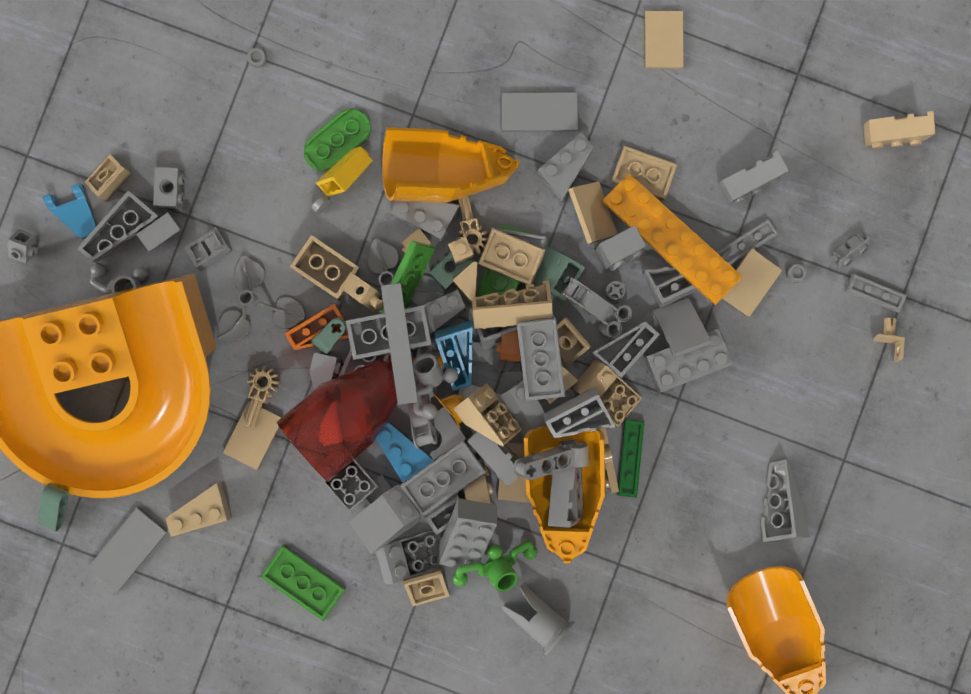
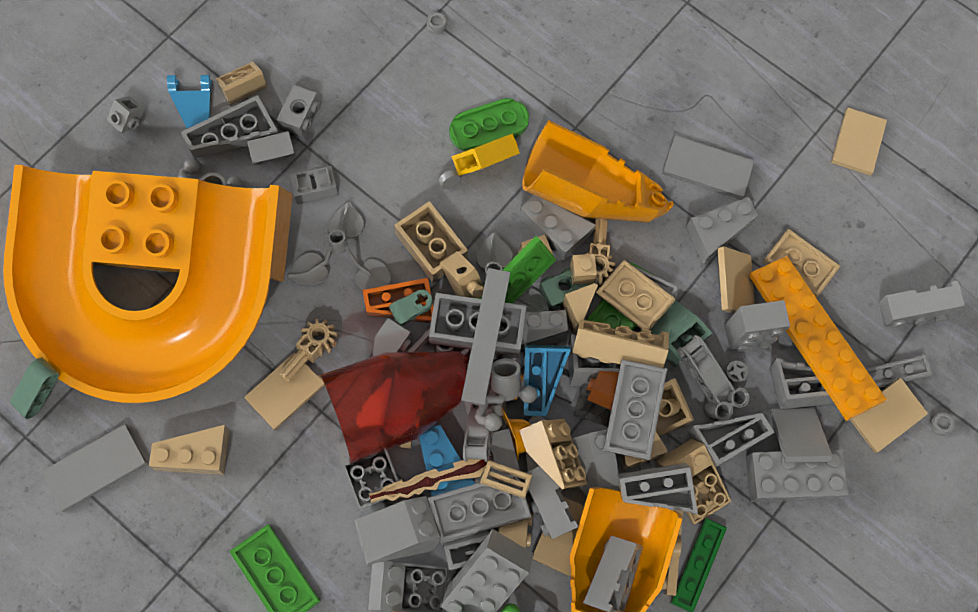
camera: 10 degrees right, 15 degrees down
(394, 472) = (430, 480): none -> tan sword
(439, 450) = (487, 473): none -> tan tile
(554, 460) = (614, 527): light grey piece -> none

